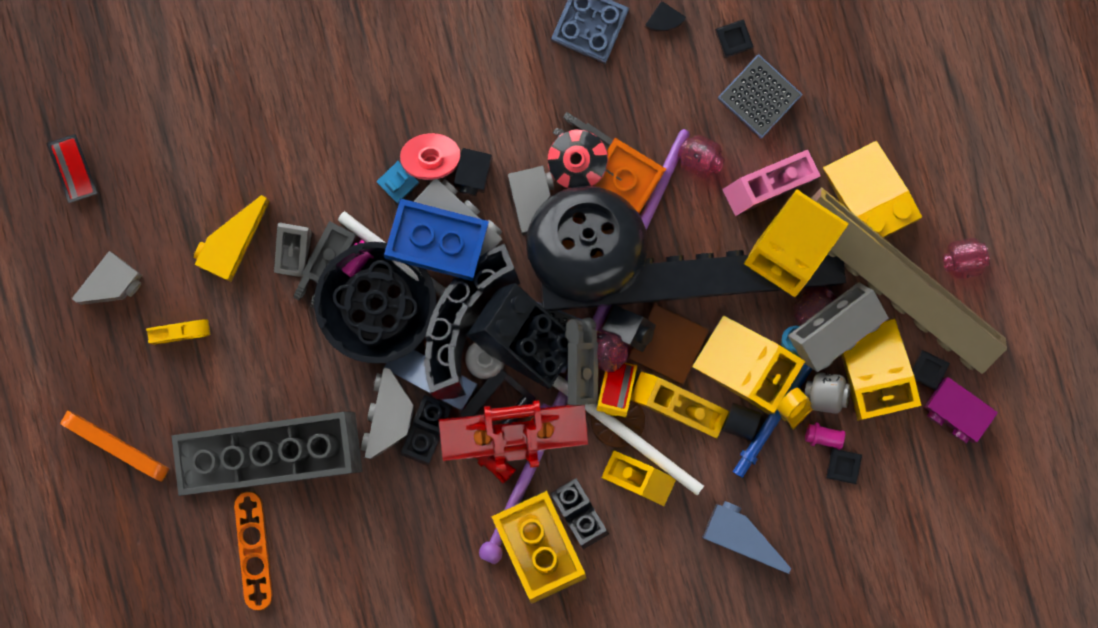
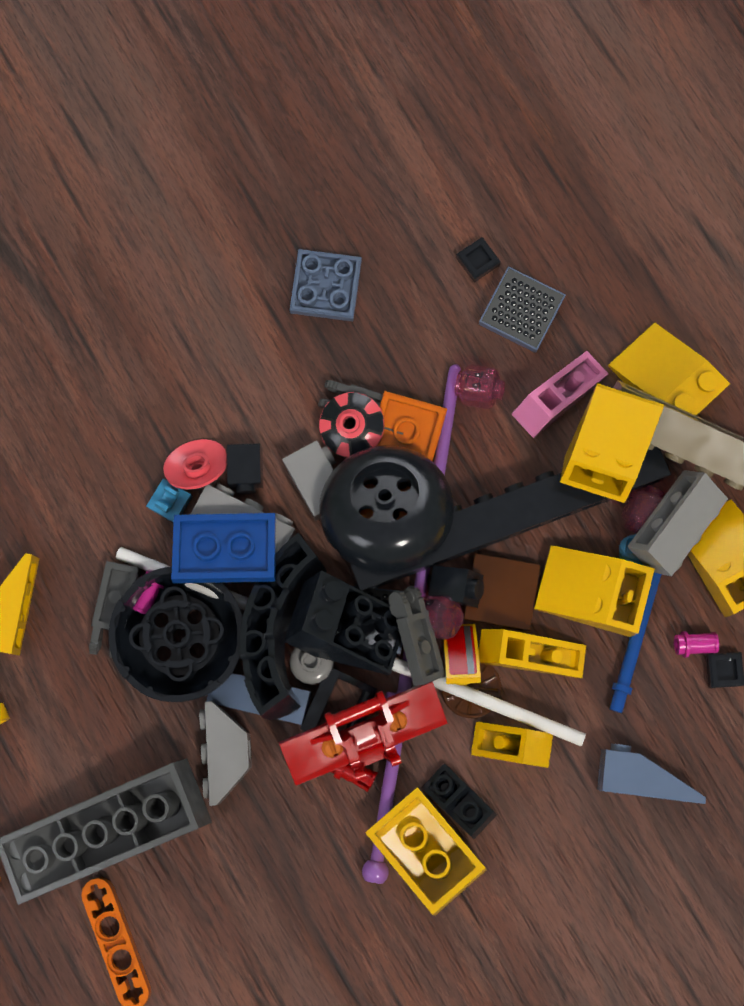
camera: 10 degrees left, 5 degrees down
(292, 249) = (74, 601): light grey slope -> none
(425, 430) = (268, 761): black slope -> none
(664, 18) = (401, 258): black tile -> none
(742, 422) = (604, 653): black brick -> none
(794, 407) = (657, 621): yellow piece -> none
(828, 392) = (686, 596): light grey head -> none

